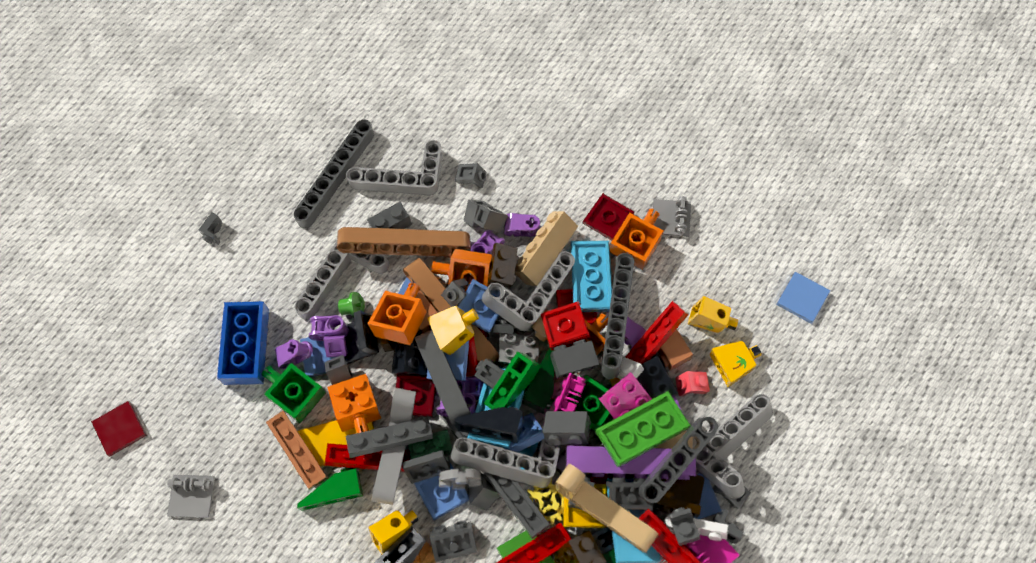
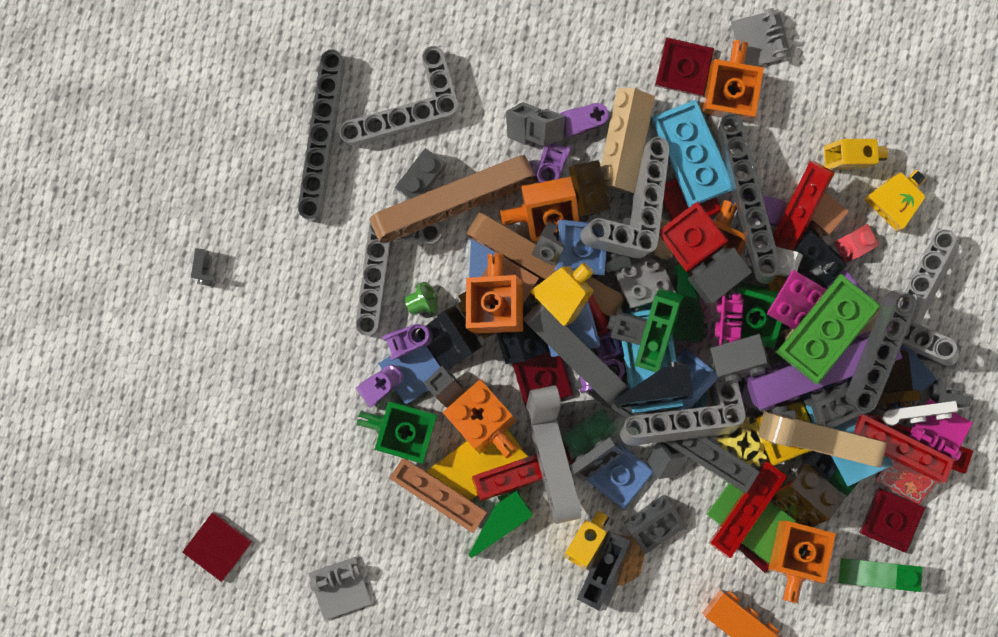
camera: 25 degrees left, 20 degrees up
(243, 343) = (304, 373): blue brick -> none
(335, 346) = (427, 358): medium lavender plate -> none
(389, 437) = (542, 445): dark grey plate -> none
(459, 479) = (641, 459): light grey plate -> none
(471, 174) = (493, 73): dark grey bracket -> none
(684, 526) = (909, 421): dark grey bracket -> none
(803, 297) = (951, 86): medium blue tile -> none

